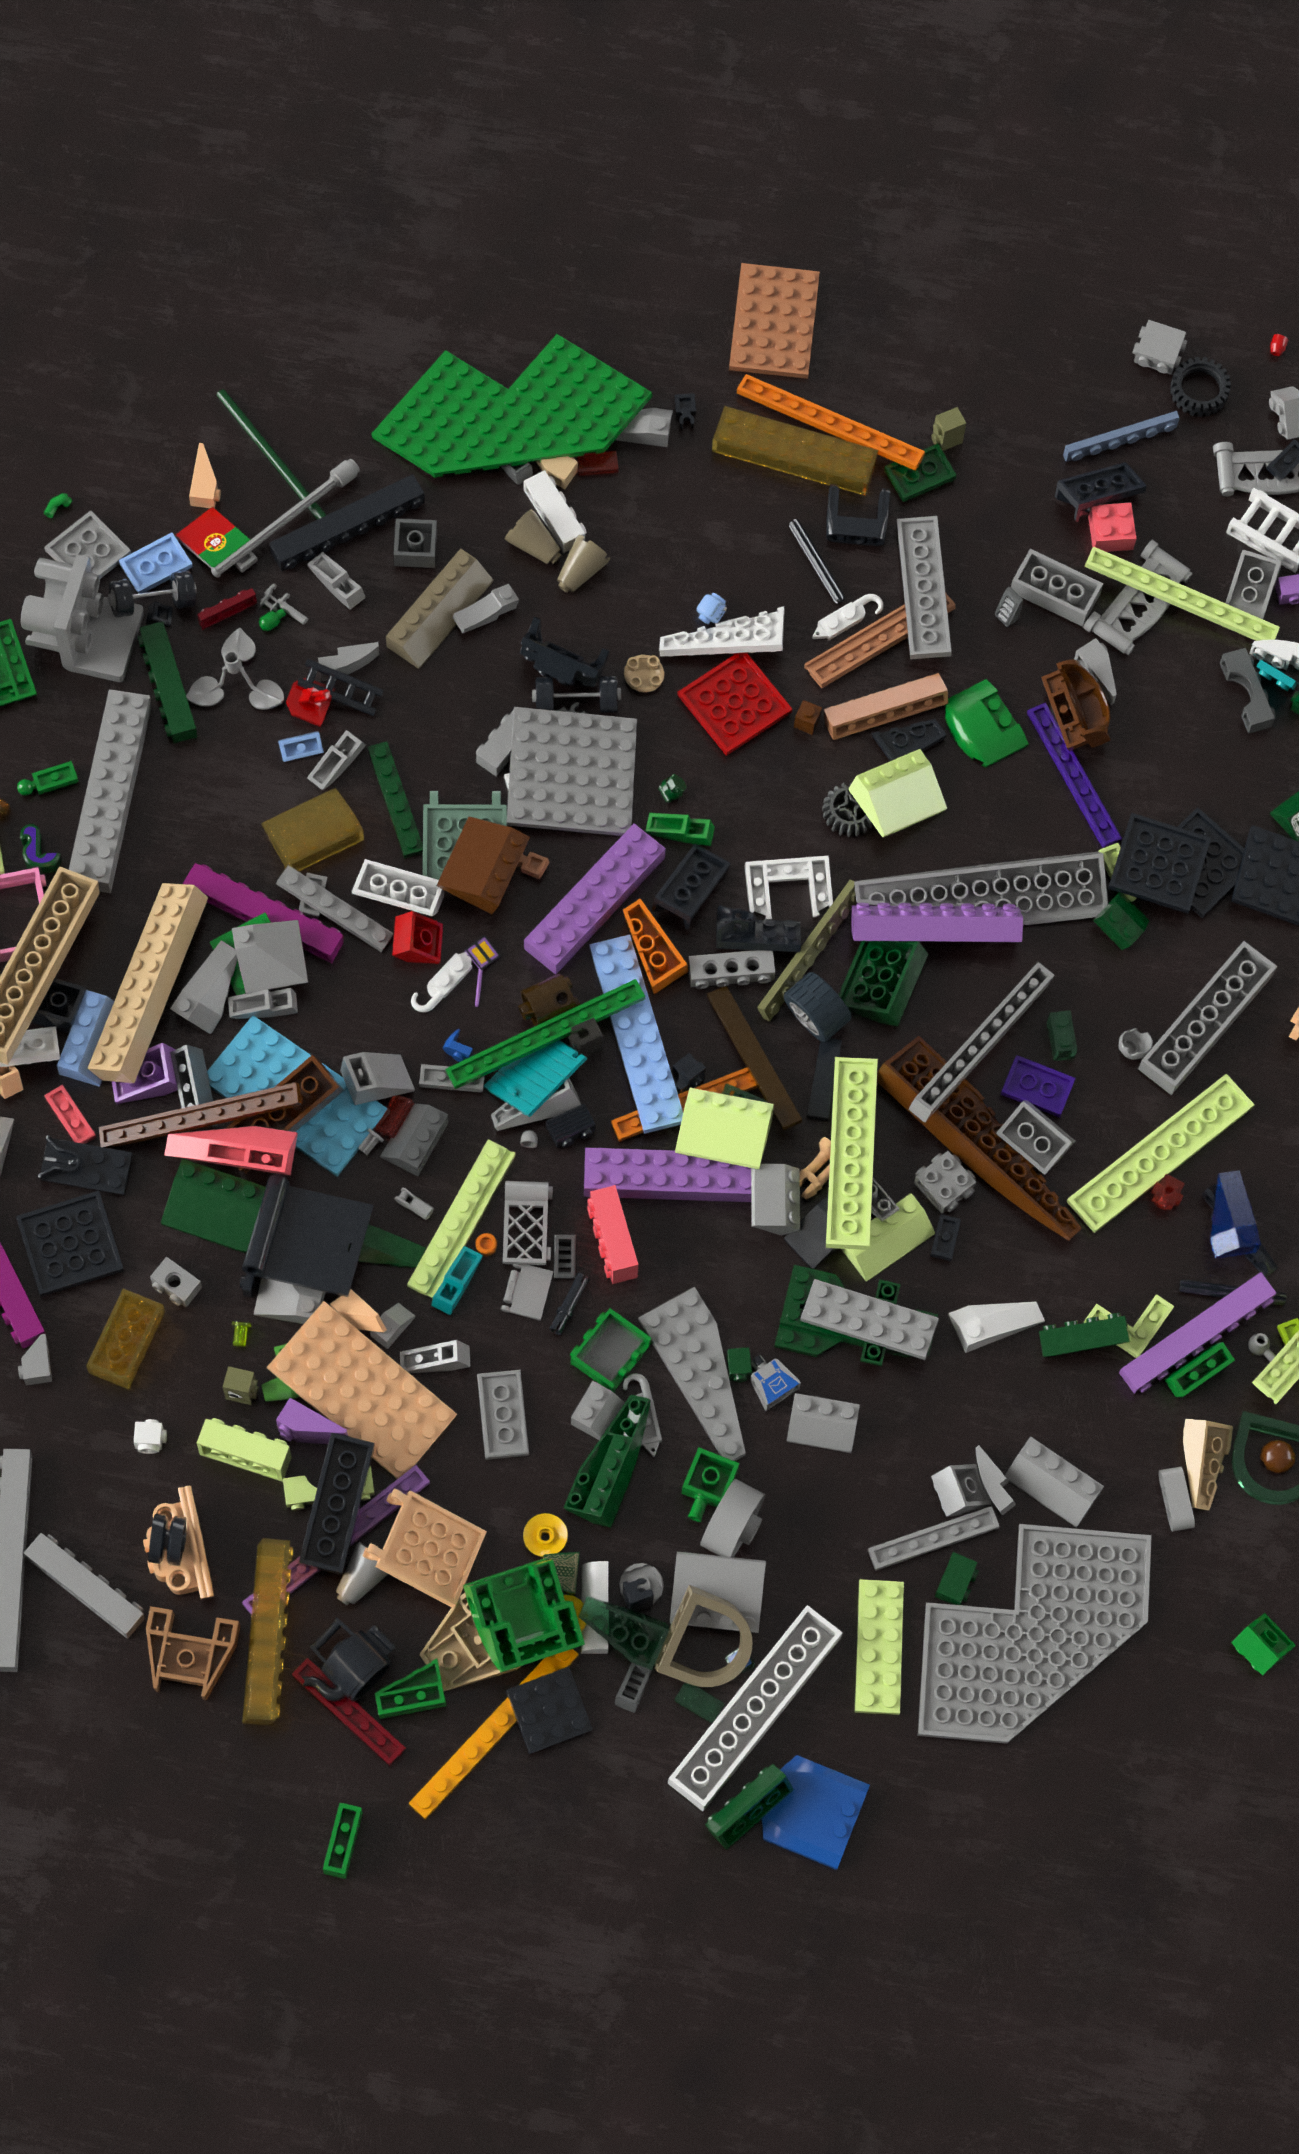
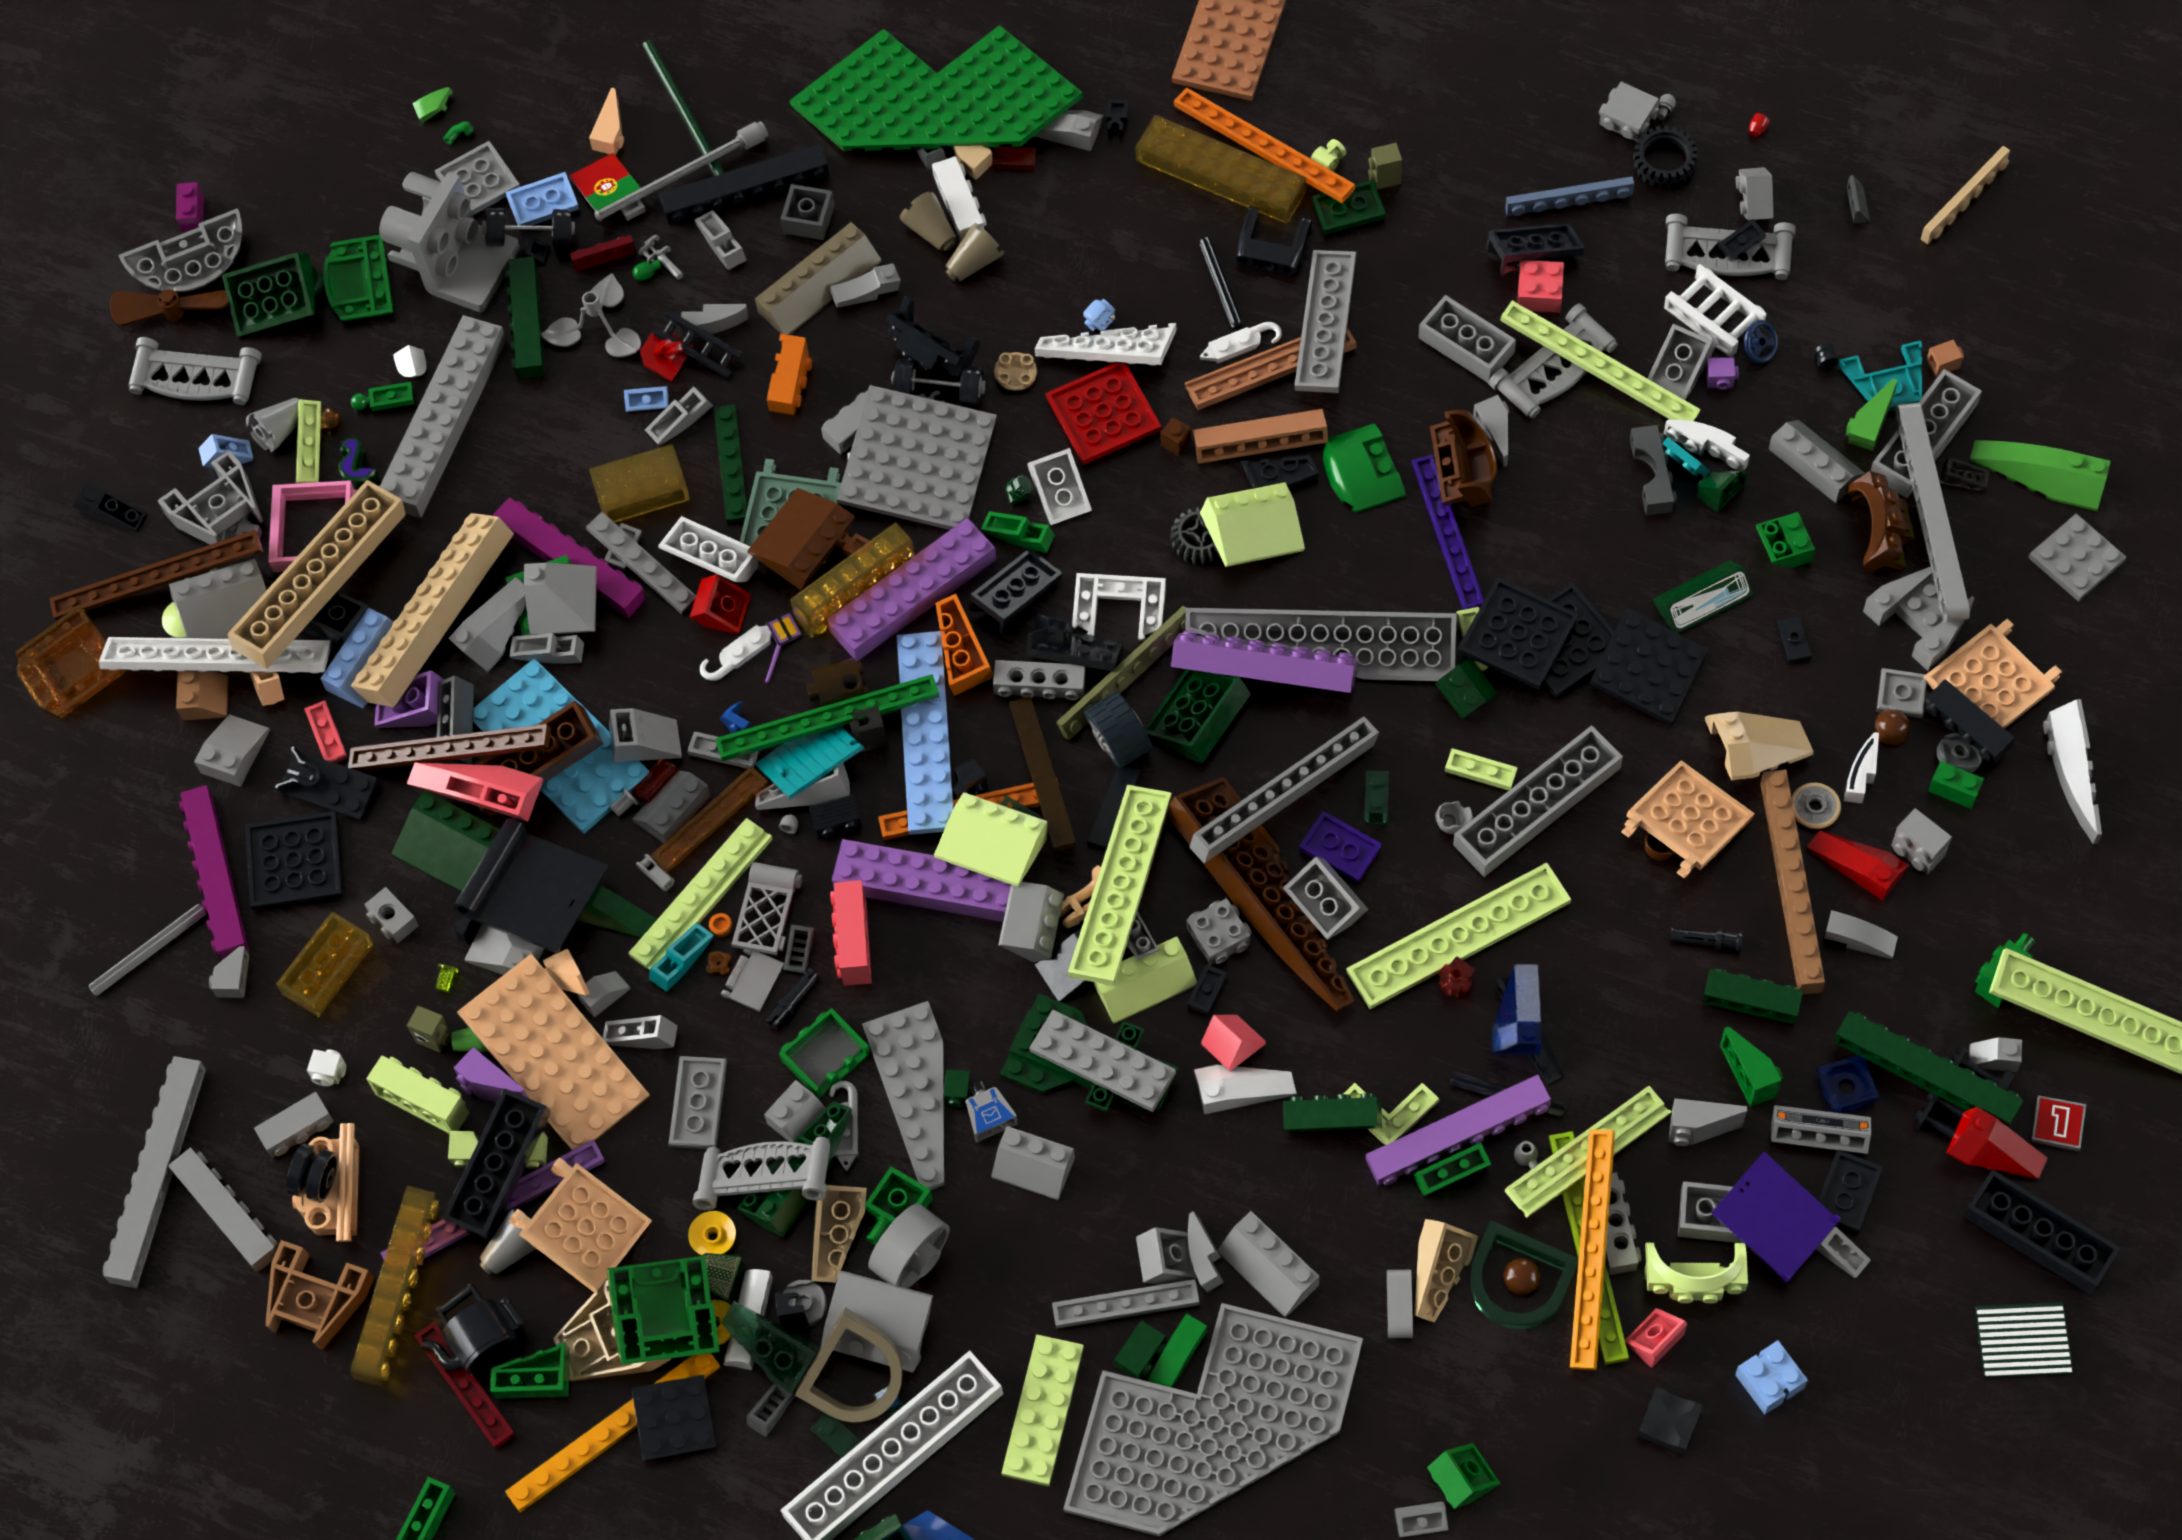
camera: 20 degrees right, 5 degrees down
(25, 479) = (432, 103): none -> bright green slope
(65, 741) = (410, 361): none -> white brick
(131, 1495) = (294, 1125): none -> light grey brick
(433, 706) = (789, 375): none -> orange wedge
(453, 1145) = (709, 819): none -> clear orange plate
(492, 1274) = (717, 956): none -> clear orange plate
(539, 898) = (851, 579): none -> clear yellow brick
(629, 1468) = (809, 1176): none -> light grey piece
(656, 1508) = (835, 1228): none -> tan wedge
(709, 780) = (1059, 486): none -> white slope
(894, 424) = (1329, 157): none -> yellowish green piece
(978, 1281) = (1231, 1040): none -> coral slope
(990, 1575) = (1178, 1352): none -> green slope
(1009, 607) = (1412, 352): dark grey slope -> none
(1149, 995) = (1481, 769): none -> yellowish green plate
(1191, 336) = (1666, 104): none -> light grey cylinder
(1233, 1688) = (1421, 1519): none -> light grey slope

